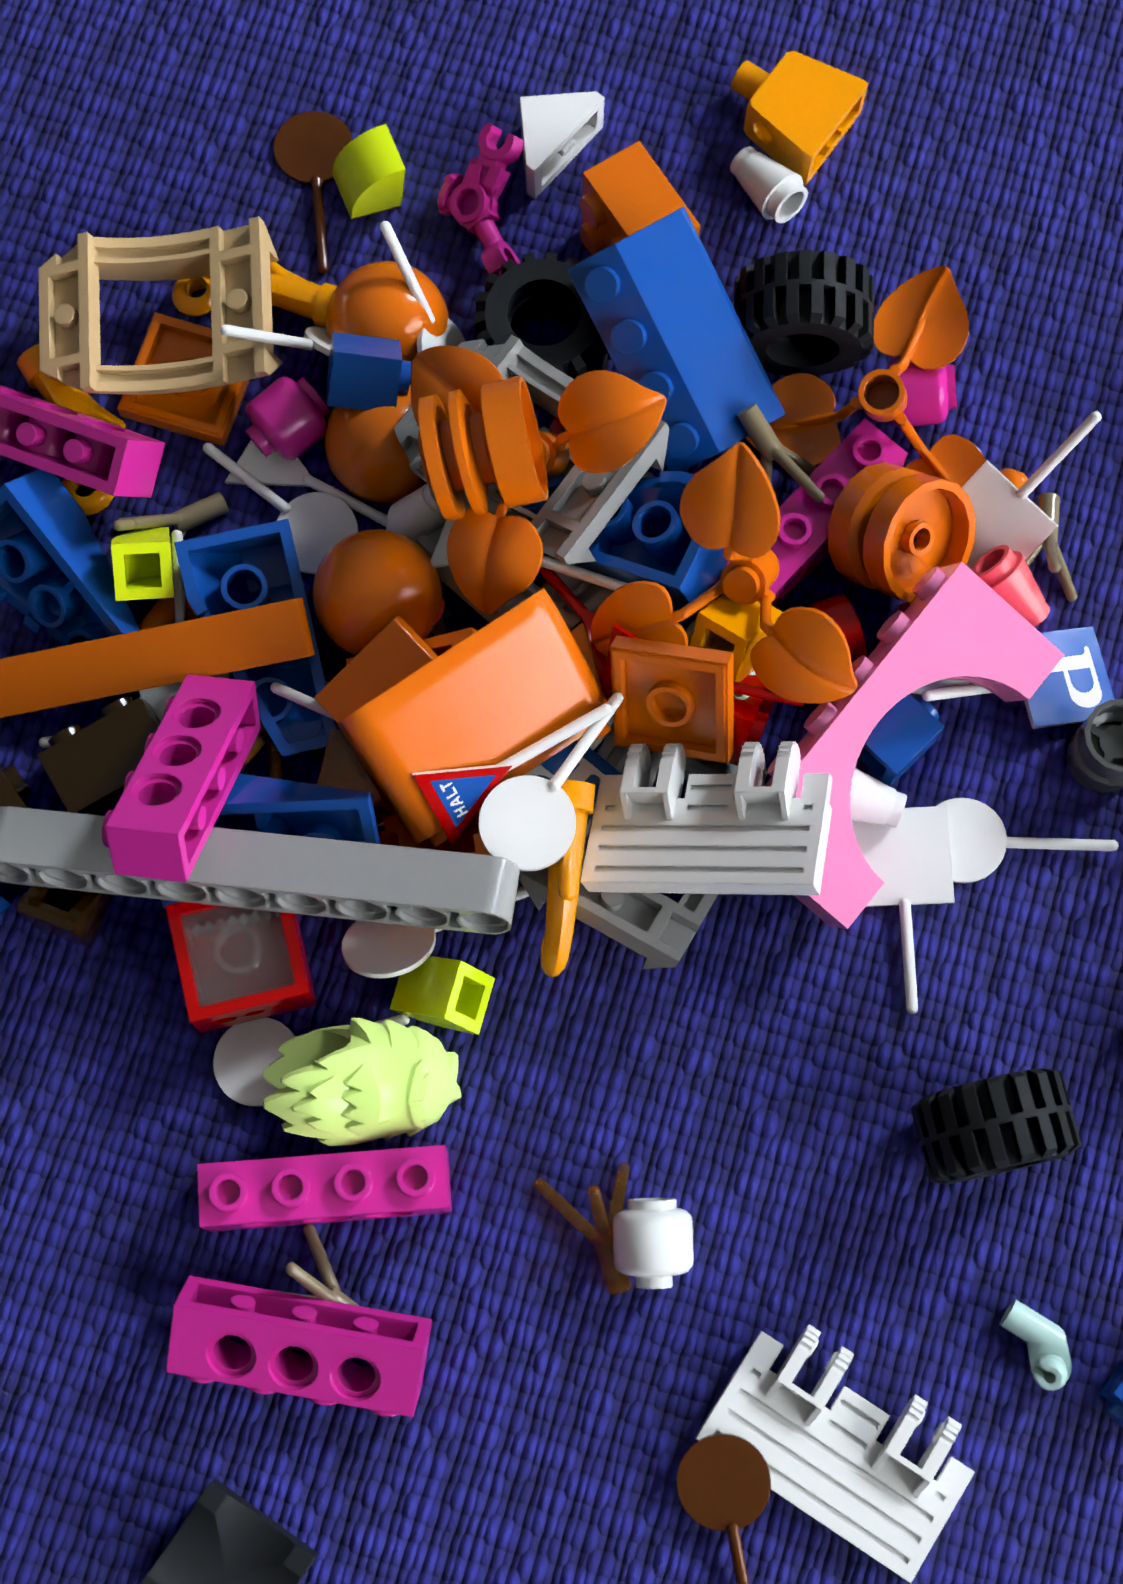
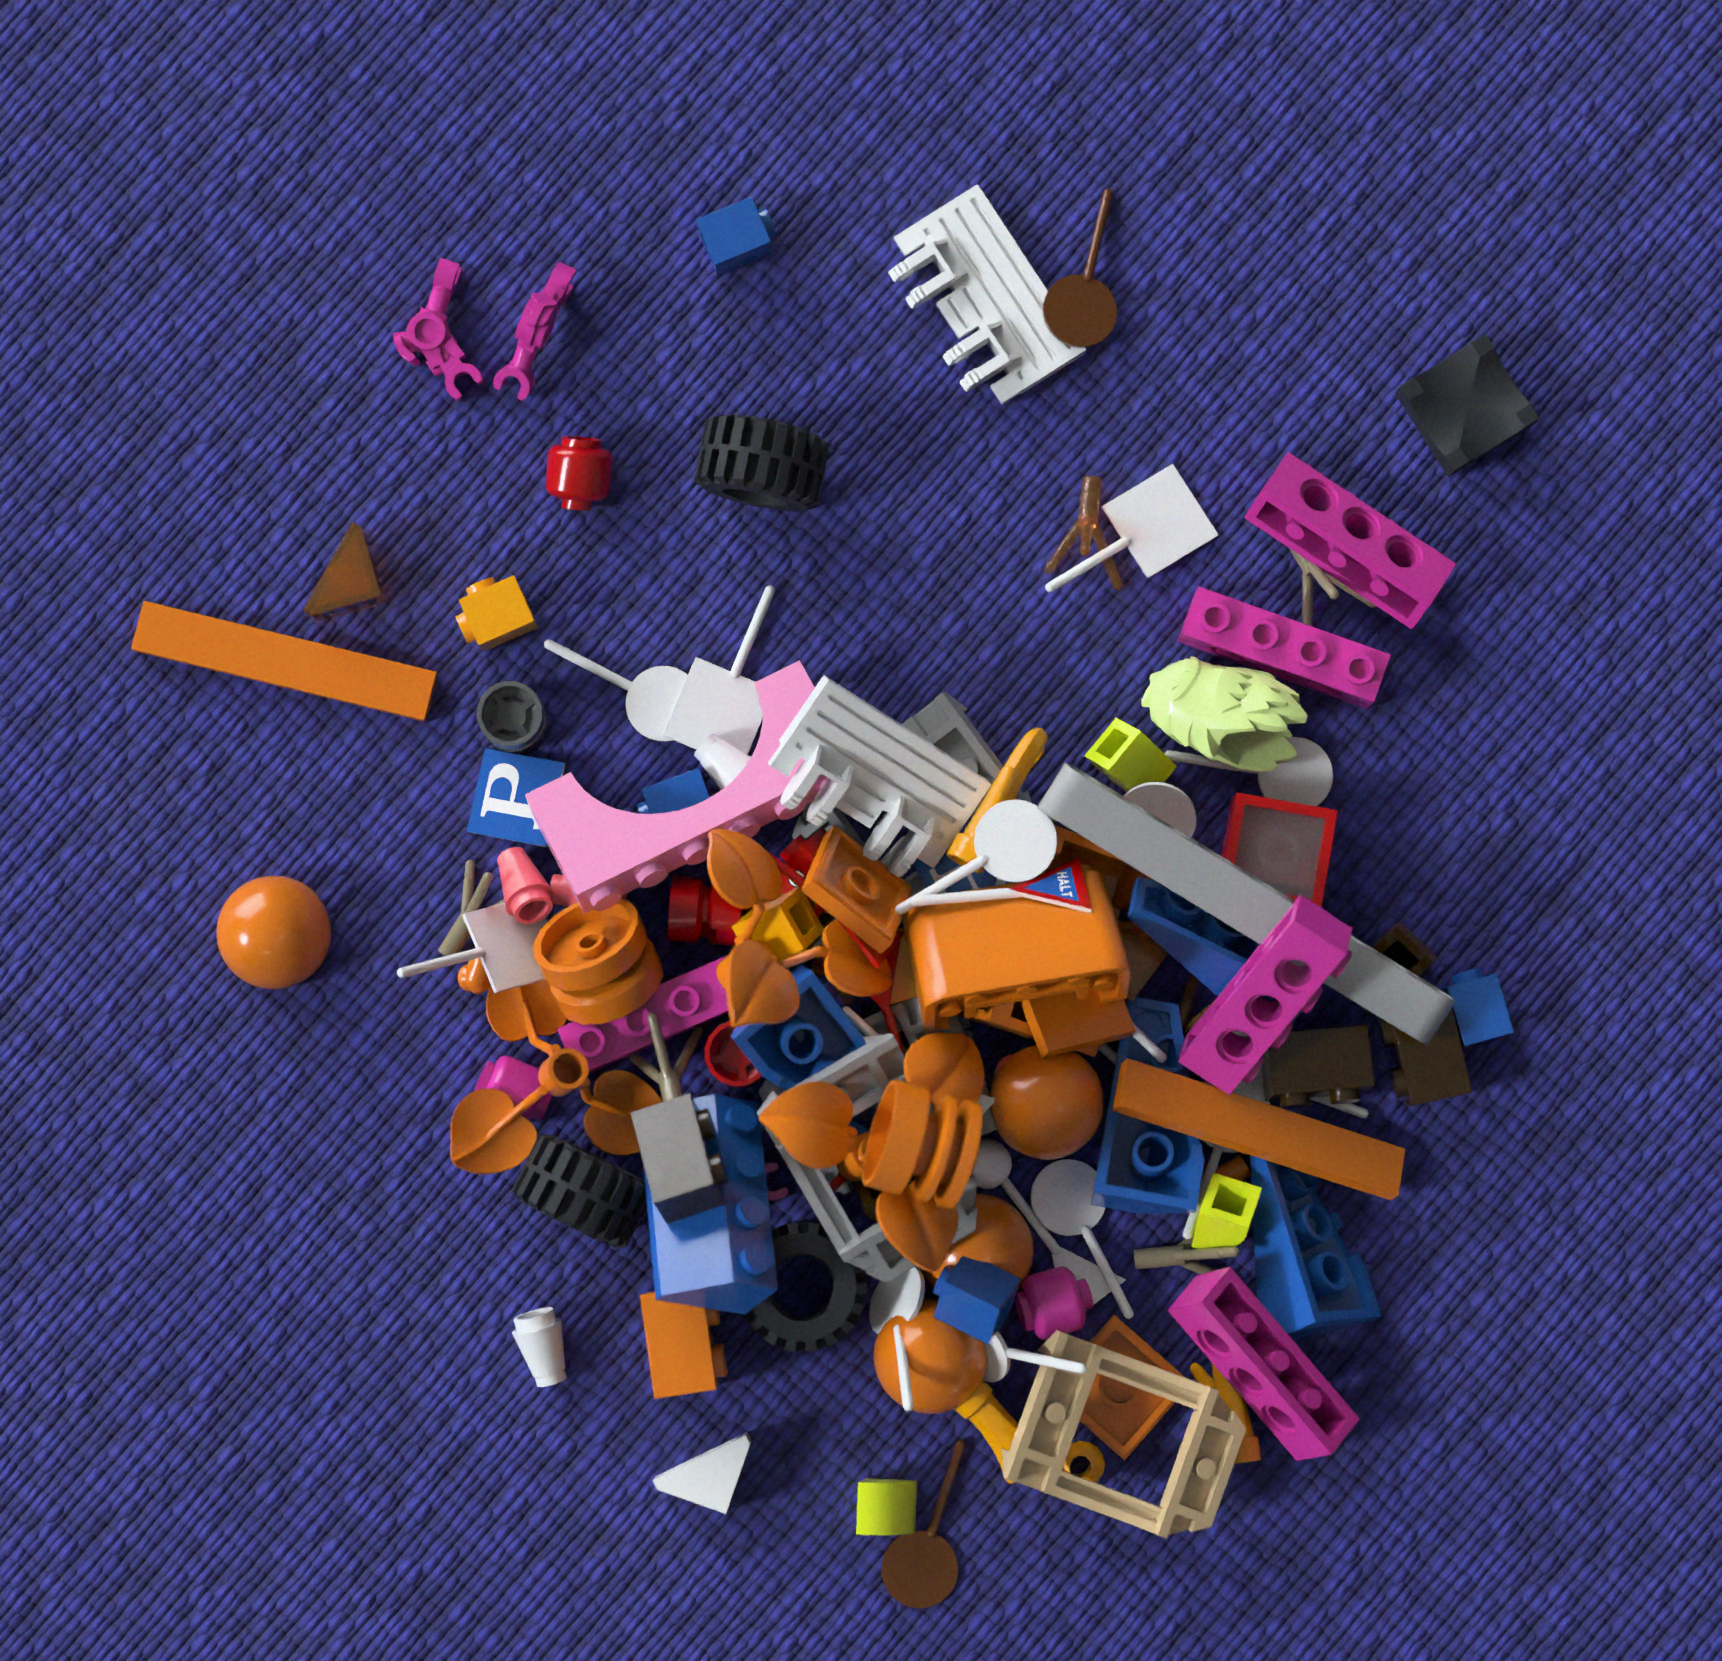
camera: 155 degrees left, 10 degrees up
(476, 195) = (804, 1438): dark pink piece -> none
(527, 1272) = (1155, 522): none -> white piece
(653, 1241) = (1054, 500): white head -> none
(726, 354) = (679, 1157): none -> brick
(799, 109) = (482, 1404): light orange torso -> none
(1045, 1344) = (795, 301): light aqua arm -> none

